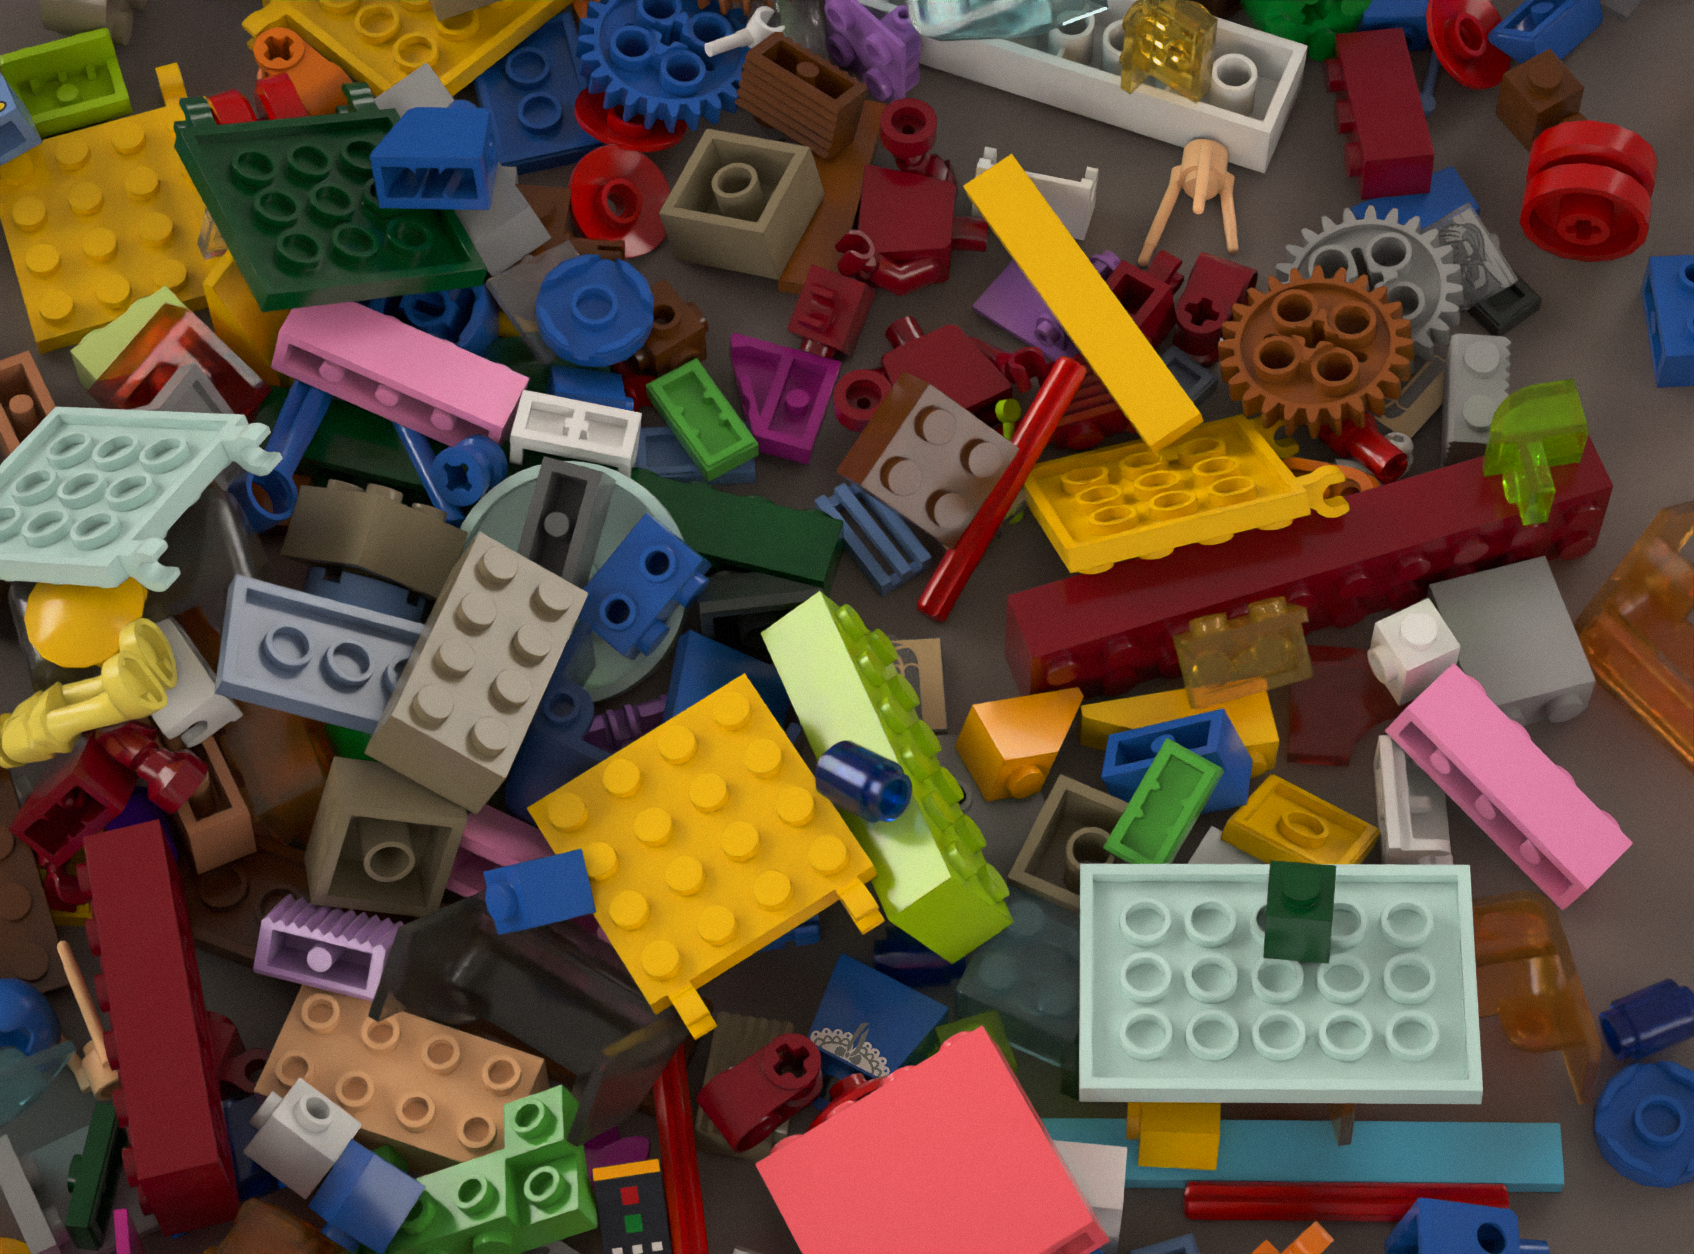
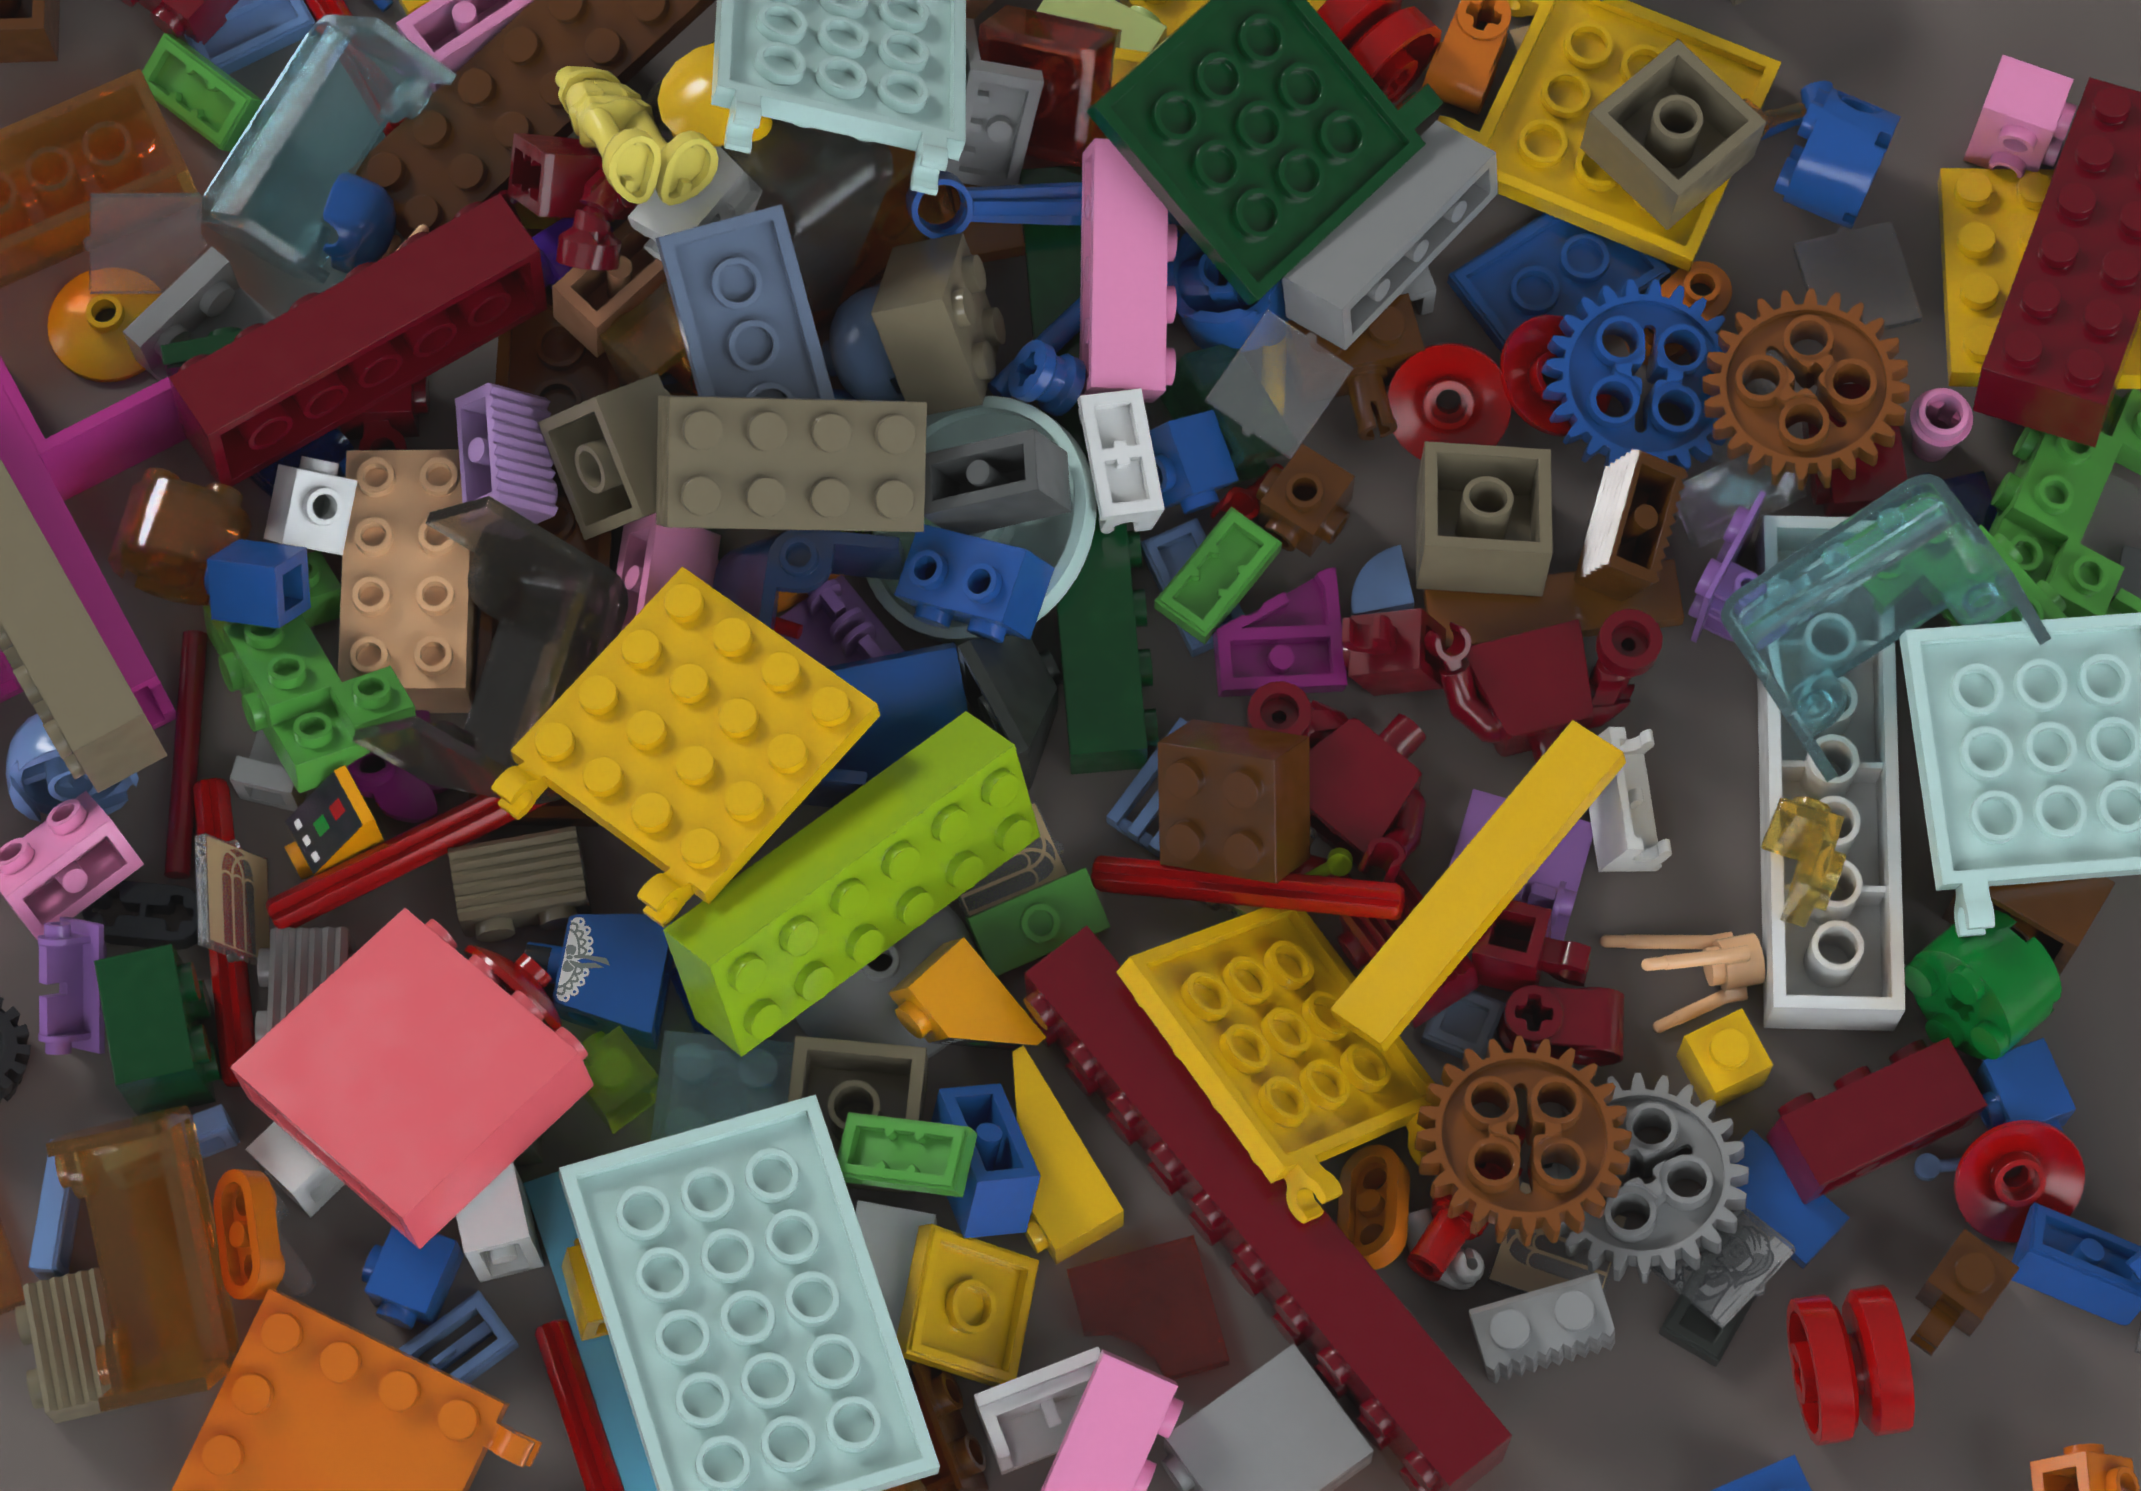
camera: 70 degrees right, 10 degrees up
(437, 159) = (1349, 203): blue torso -> none
(538, 892) = (589, 607): blue brick -> none
(594, 310) = (1275, 422): blue tile -> none
(750, 36) = (1682, 446): white hand -> none
(754, 1095) = (483, 888): dark red piece -> none
(758, 311) = (1382, 585): none -> medium blue tile
(863, 782) = (786, 851): clear blue brick -> none
(955, 667) = (1037, 921): none -> bright green plate
(1243, 654) = (1119, 1177): clear yellow bracket -> none
(1288, 199) = (1724, 1059): none -> yellow brick
(1299, 911) = (805, 1310): dark green brick -> none
(1412, 650) = (1205, 1349): white brick -> none
(1529, 434) = (1460, 1371): clear neon green brick -> none

